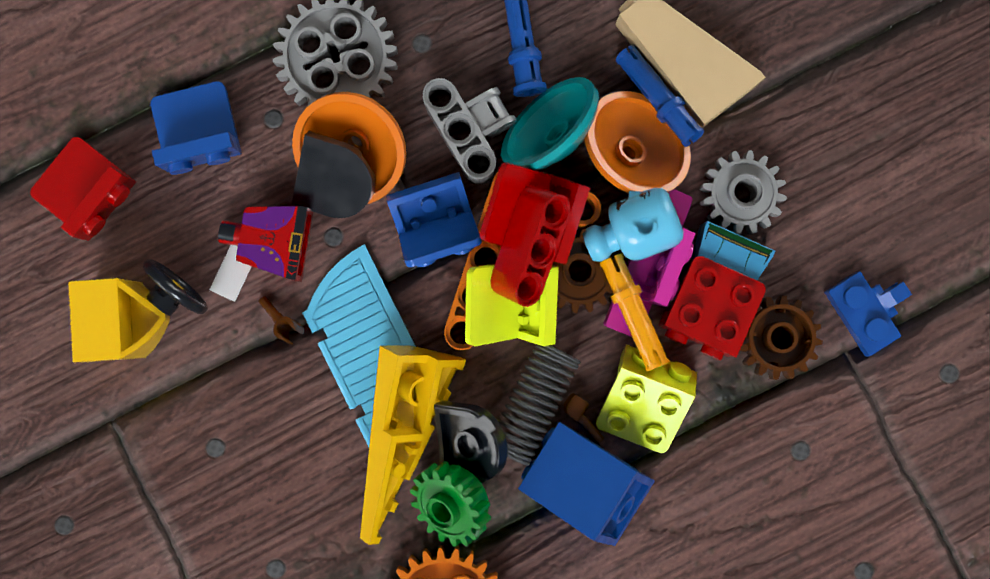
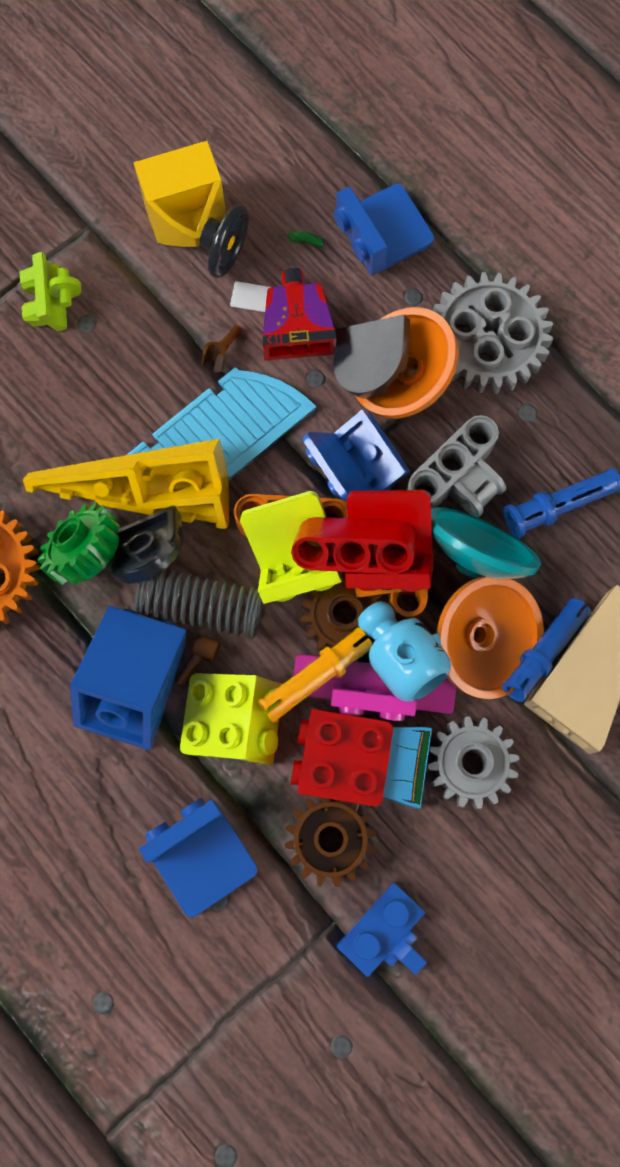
camera: 75 degrees right, 10 degrees down
(82, 189) = (298, 147): red bracket -> none
(178, 475) = (52, 293): none -> lime hips
(182, 210) = (309, 239): none -> green leg
(764, 457) = (199, 856): none -> blue bracket

